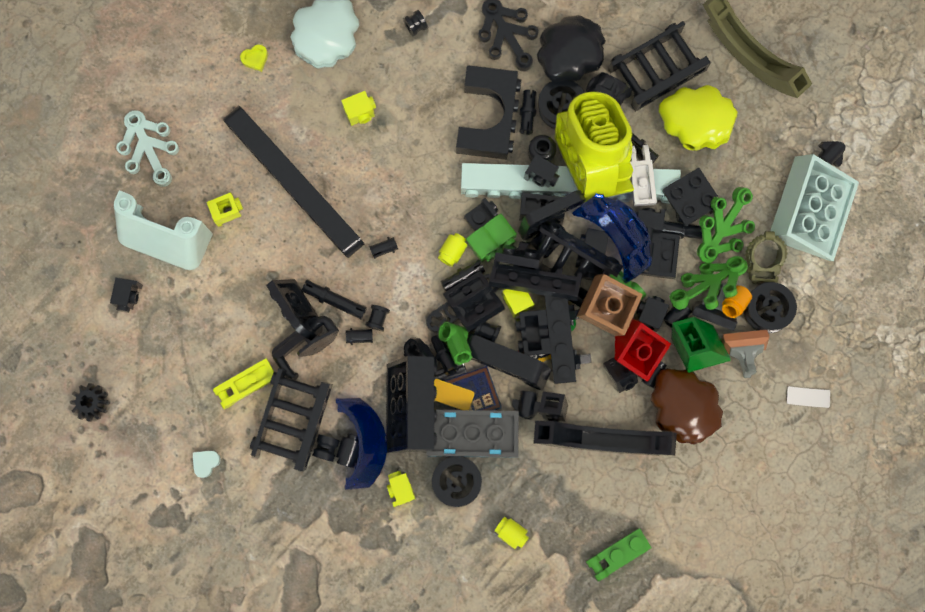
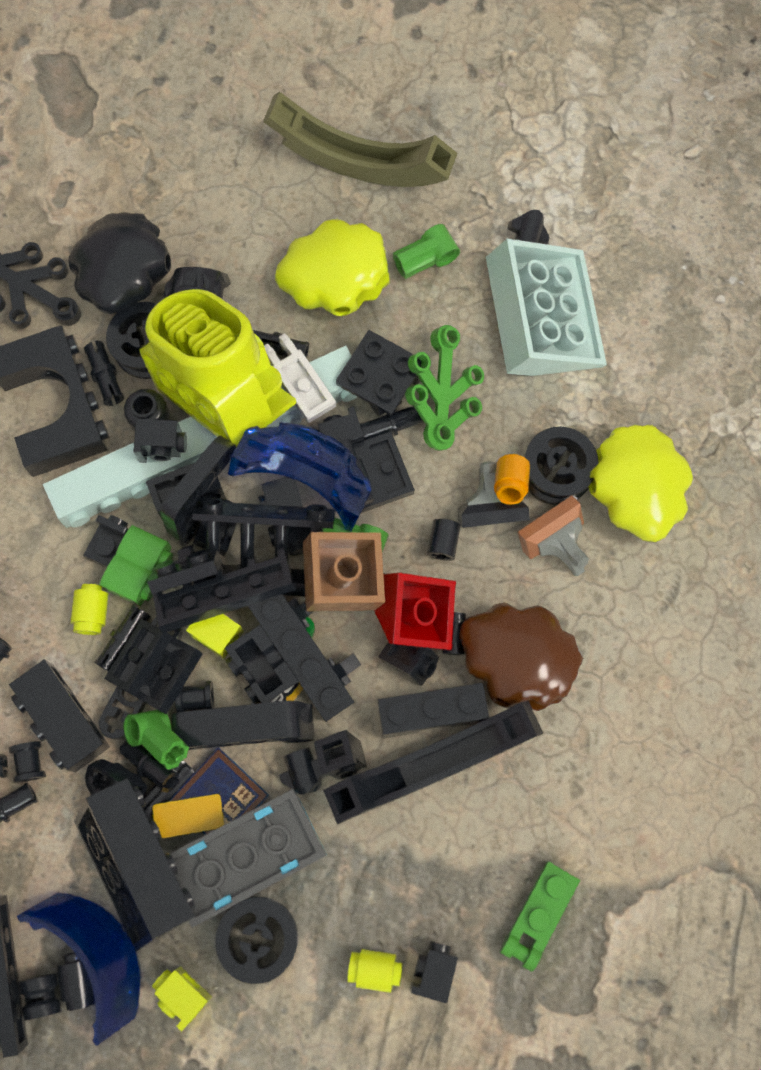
camera: 30 degrees left, 5 degrees down
(406, 301) = (58, 717): none -> black brick
(545, 552) = (435, 972): none -> black brick
(618, 409) = (432, 709): none -> black arch
(652, 312) = (408, 552): black brick -> none
(659, 87) = (264, 255): black fence -> none
(698, 344) = (492, 563): green slope -> none
(732, 268) = (483, 439): bright green plant -> none
(765, 274) = (519, 428): olive piece -> none
(766, 134) = (433, 248): none -> bright green piece
(808, 397) = (673, 557): white sticker -> none
(814, 343) = (641, 481): none -> neon yellow piece

